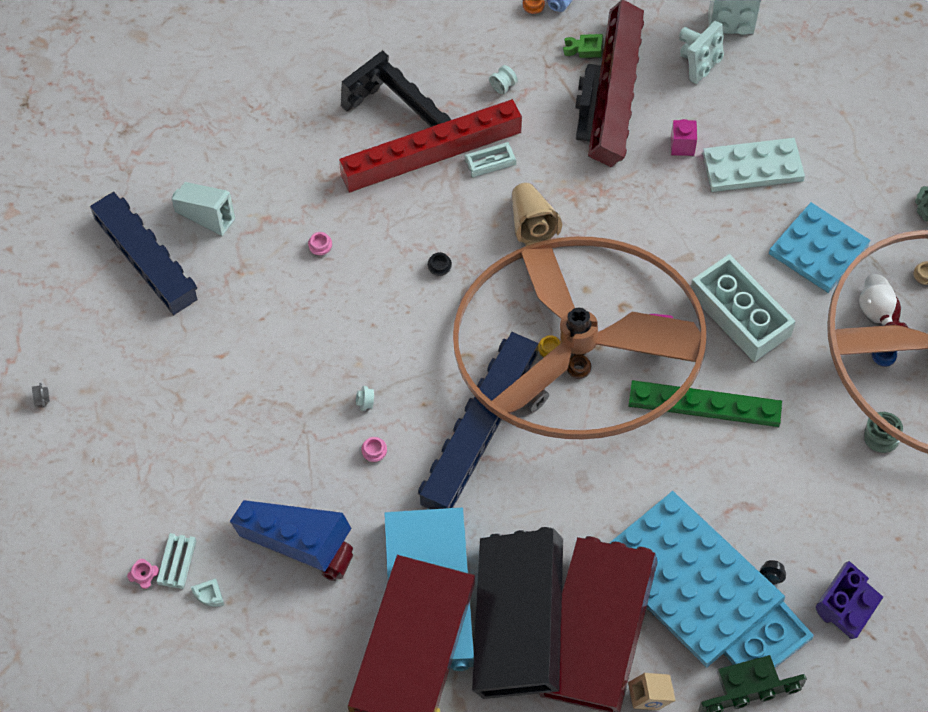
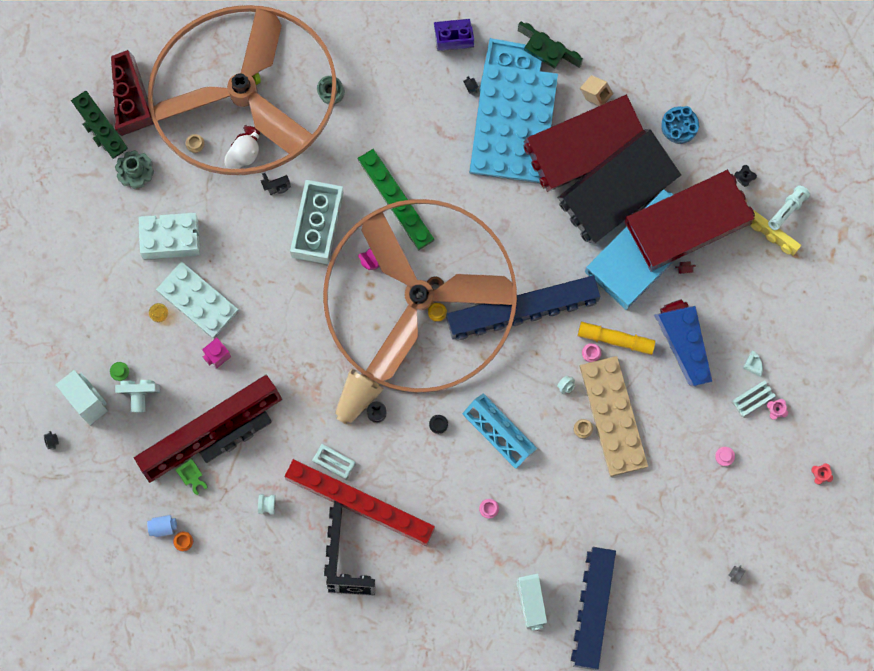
camera: 135 degrees left, 15 degrees up
(40, 550) = (825, 468): none -> coral plate
(152, 482) = (725, 456): none -> bright pink plate
(294, 418) = (613, 416): none -> tan plate
(309, 380) = (583, 428): none -> tan plate
(366, 481) = (616, 338): none -> yellow piece
(368, 611) = (685, 267): none -> dark red plate
(381, 309) = (501, 428): none -> medium azure fence
(497, 226) = (377, 415): none -> black wheel
(738, 60) = (119, 371): none -> bright green plate
(768, 126) = (158, 312): none -> clear yellow plate
(819, 247) = (227, 216): medium azure plate -> none
(820, 299) = (278, 185): none -> black bracket
(841, 178) = (169, 236): none -> light aqua piece

